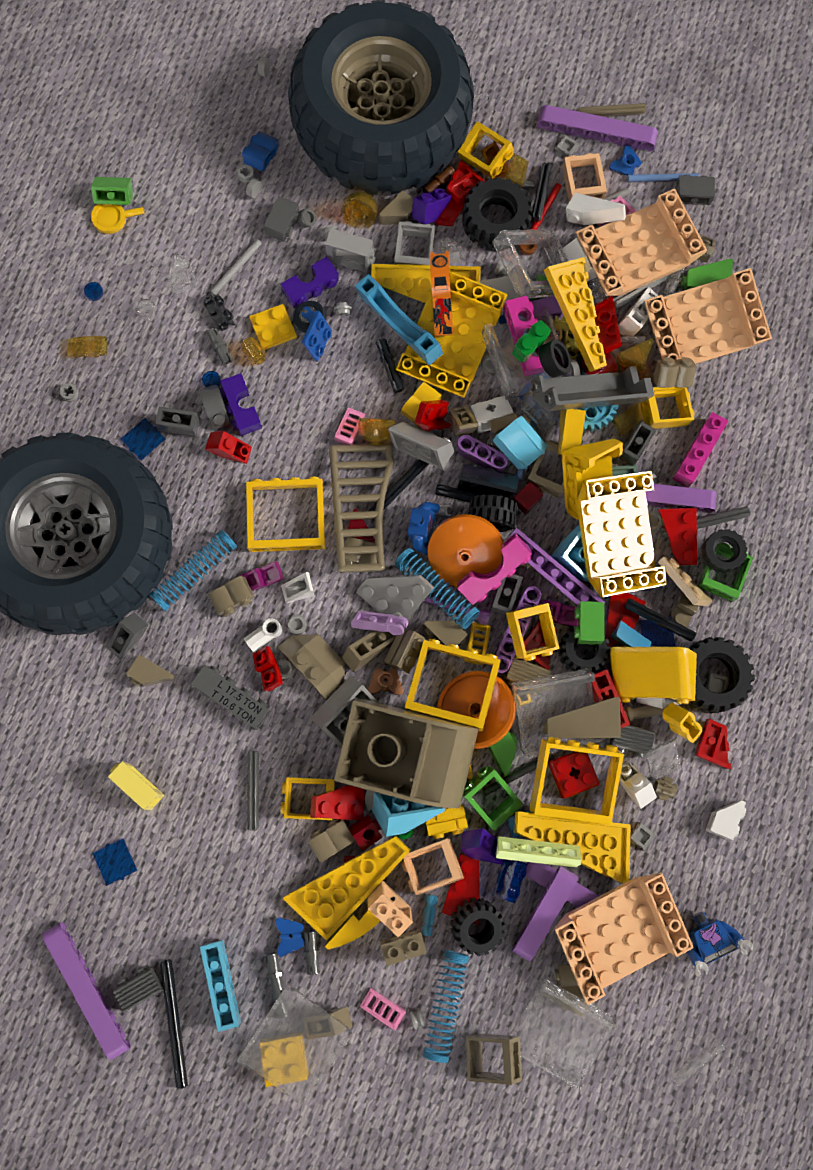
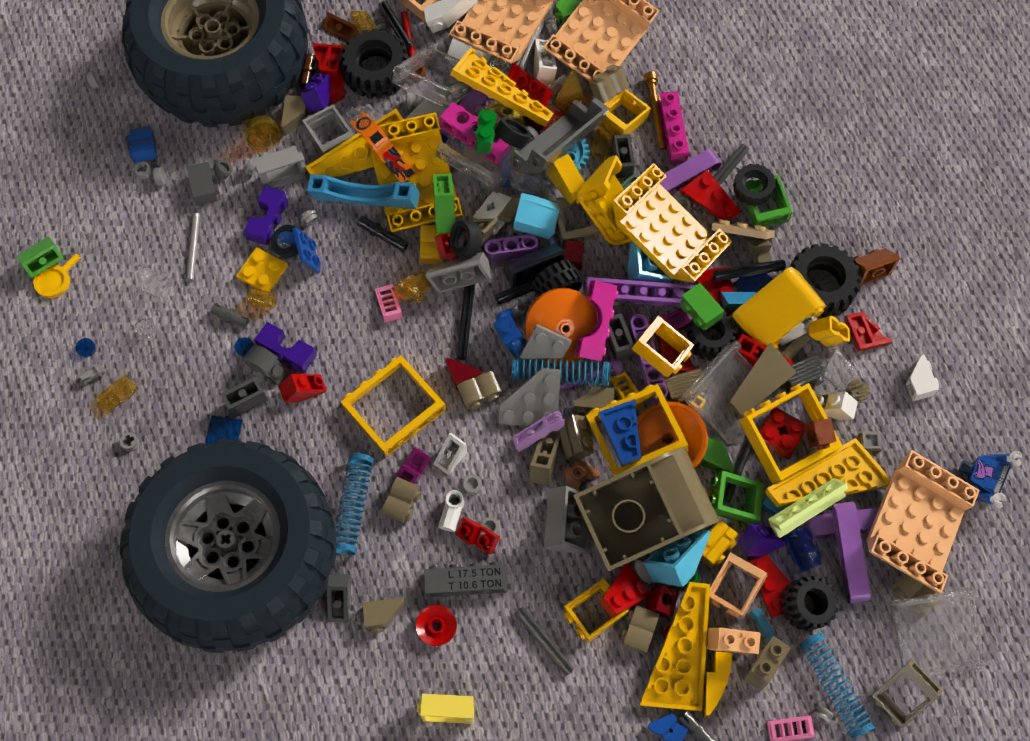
camera: 30 degrees left, 10 degrees down
(82, 316) = (92, 373): none -> light grey pin
(171, 712) = (431, 616): none -> red dish
(214, 305) = (214, 291): black hinge -> none
(315, 662) = (511, 502): dark tan wedge -> none
(377, 515) = (458, 337): dark tan bar -> none
(438, 677) = (622, 431): none -> blue wing
(439, 557) = (545, 344): none -> light grey wing
(443, 422) = (474, 238): none -> black tyre
(449, 378) = (443, 202): none -> bright green window
(471, 142) = (323, 38): yellow window -> none
(597, 802) = (820, 433): none -> copper brick
(716, 394) = (651, 80): none -> pearl gold piece
(770, 694) = (876, 264): none -> dark orange slope

